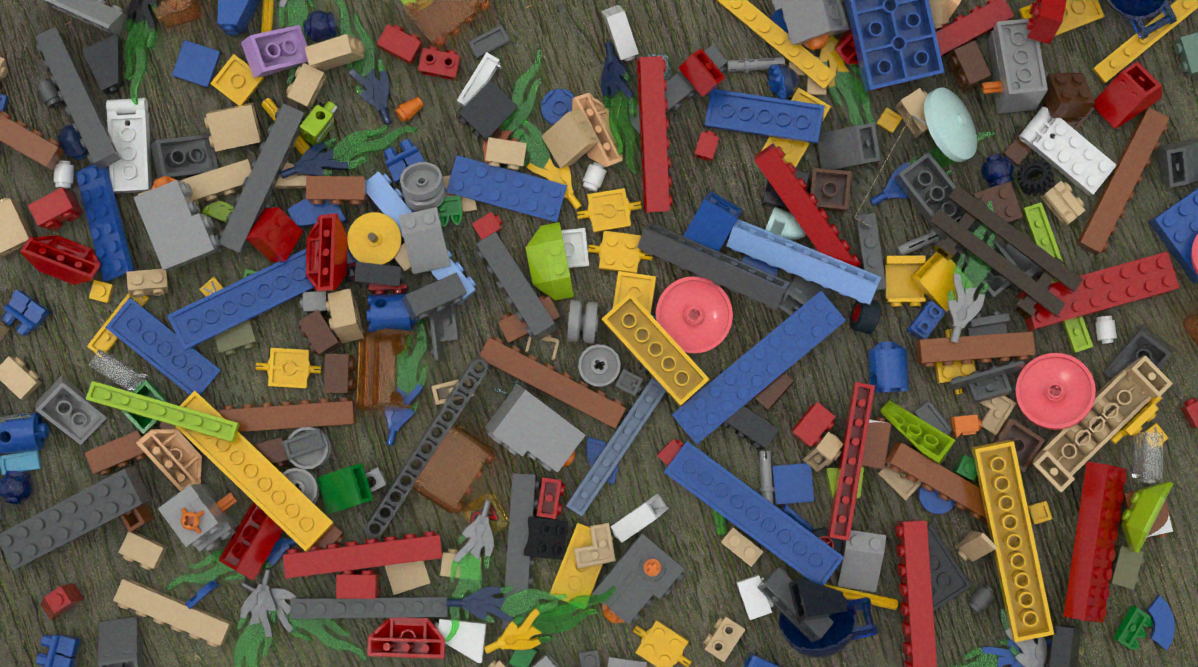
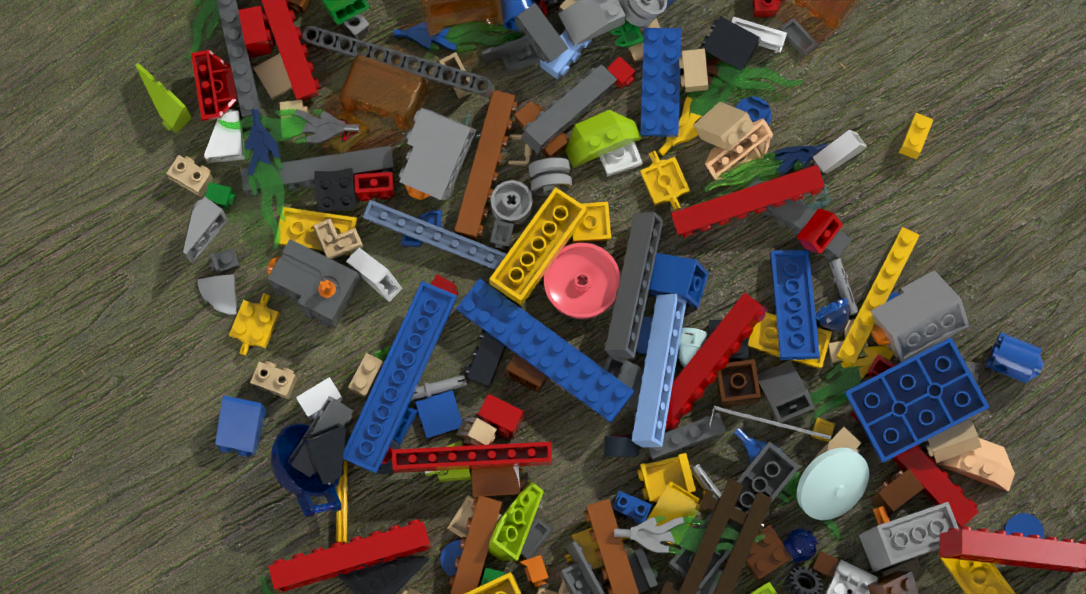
camera: 75 degrees right, 10 degrees down
(537, 622) = (252, 197): clear neon green piece -> none
(594, 176) = (693, 159): white brick -> none
(619, 252) = (626, 199): yellow plate -> none
(706, 146) = (751, 257): red brick -> none
(861, 561) = (378, 496): light grey slope -> none
(888, 367) = (574, 478): blue cylinder -> none

